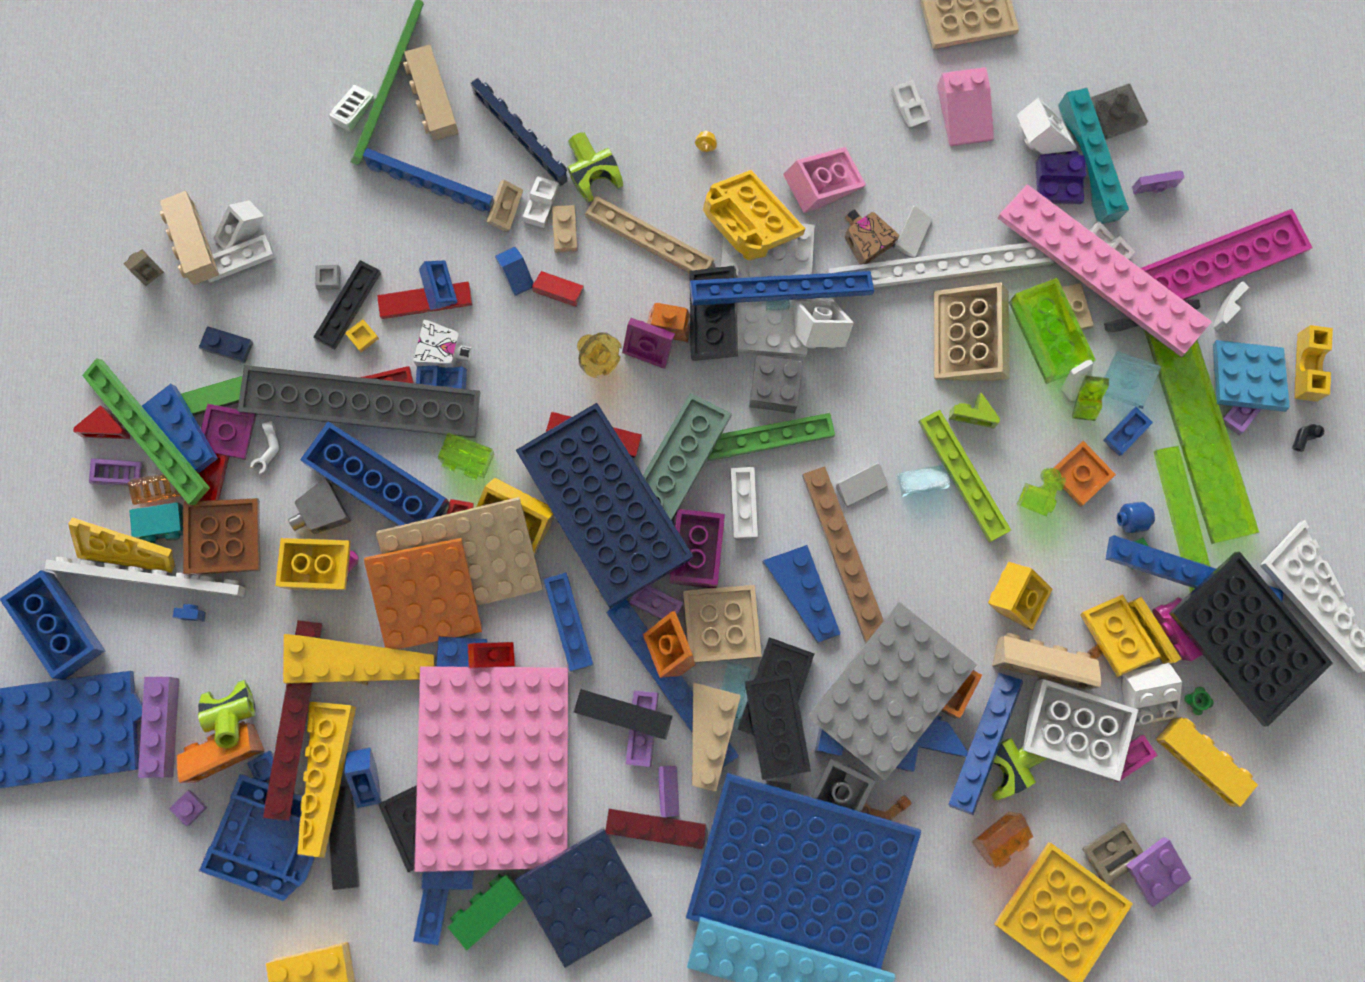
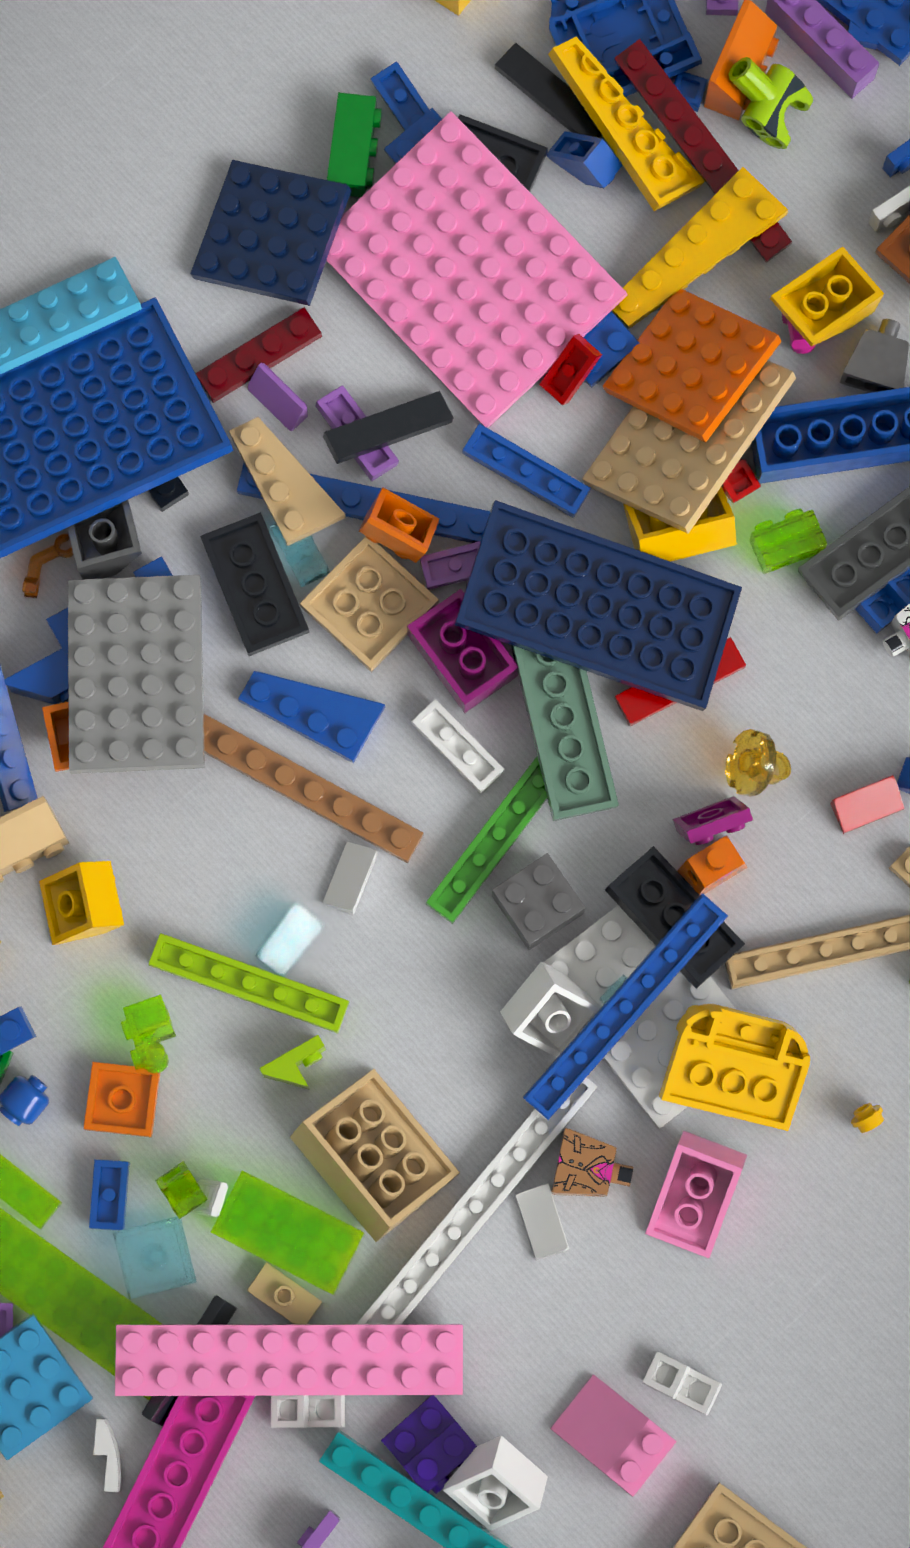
camera: 145 degrees right, 0 degrees up
(777, 726) = (222, 544): black plate -> none

